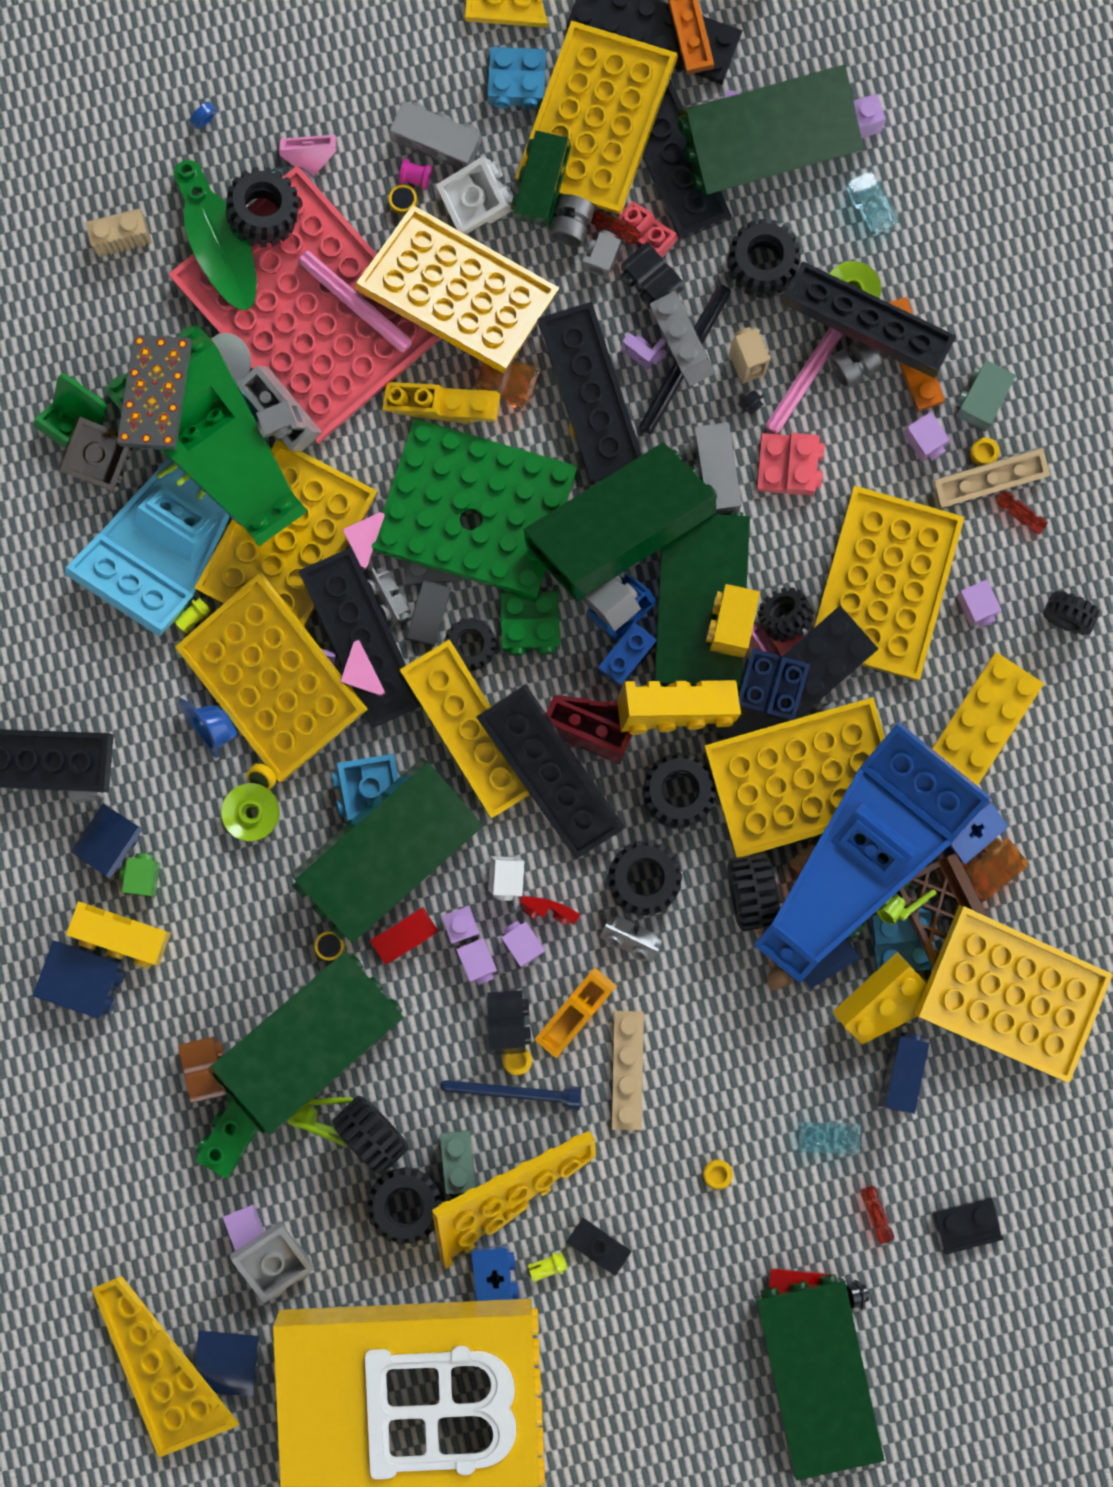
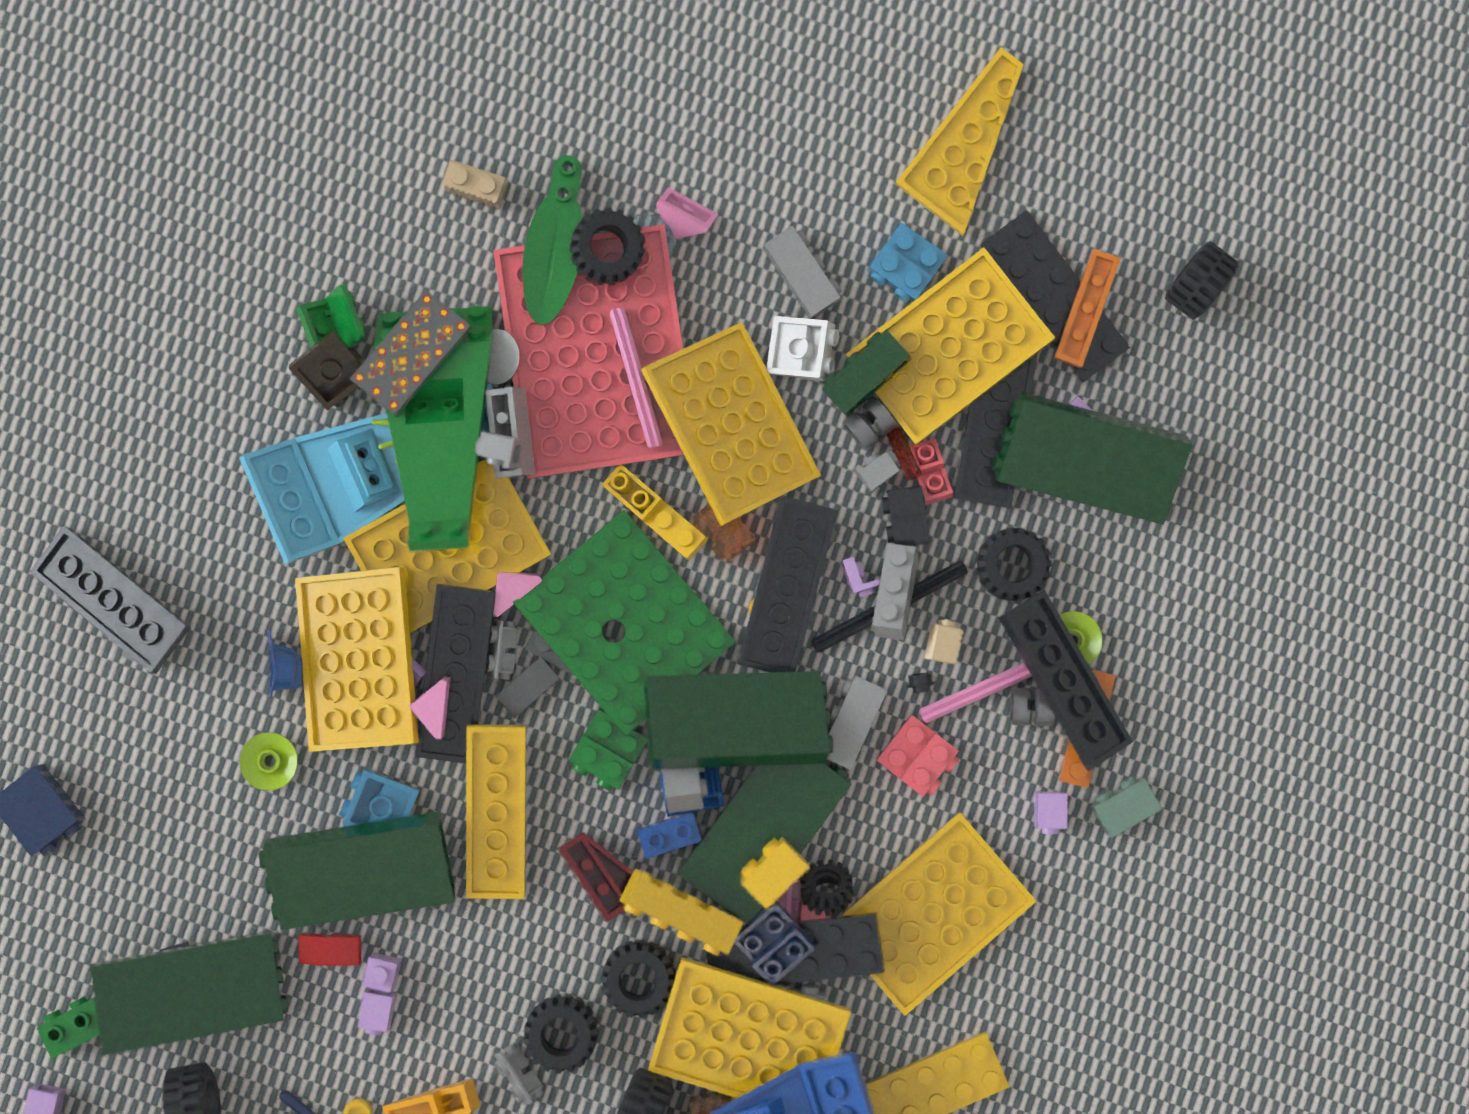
camera: 35 degrees right, 5 degrees up
(107, 841) = (132, 709): dark blue slope -> none
(118, 935) = (92, 794): yellow wedge -> none
(140, 875) = (143, 755): bright green brick -> none
(192, 615) = (329, 559): neon yellow pin -> none
(196, 1061) = (93, 944): dark orange brick -> none
(203, 115) = (614, 125): blue tile -> none
(261, 775) = (297, 736): yellow tile -> none
(307, 1118) = (154, 1053): lime plant -> none
(329, 946) = (261, 916): black tile -> none
(402, 198) = (738, 309): tile -> none
(415, 174) = (762, 295): dark pink bush -> none
(479, 628) = (563, 736): black tyre -> none
(506, 877) = (445, 956): white brick -> none
(506, 1022) = (368, 1078): black brick -> none
(522, 943) = (424, 1020): lavender brick -> none
(540, 907) = (458, 999): red slope -> none
(550, 771) = (538, 894): black plate -> none
(869, 115) = (1188, 496): lavender brick -> none
(873, 201) = (1142, 574): clear light blue slope -> none
(979, 604) = (999, 984): lavender brick -> none
(984, 451) = (1092, 854): yellow tile -> none
(991, 477) = (1082, 881): tan plate -> none
(1021, 512) = (1089, 927): clear red axle -> none
(1071, 613) = (1071, 1045): black tyre -> none

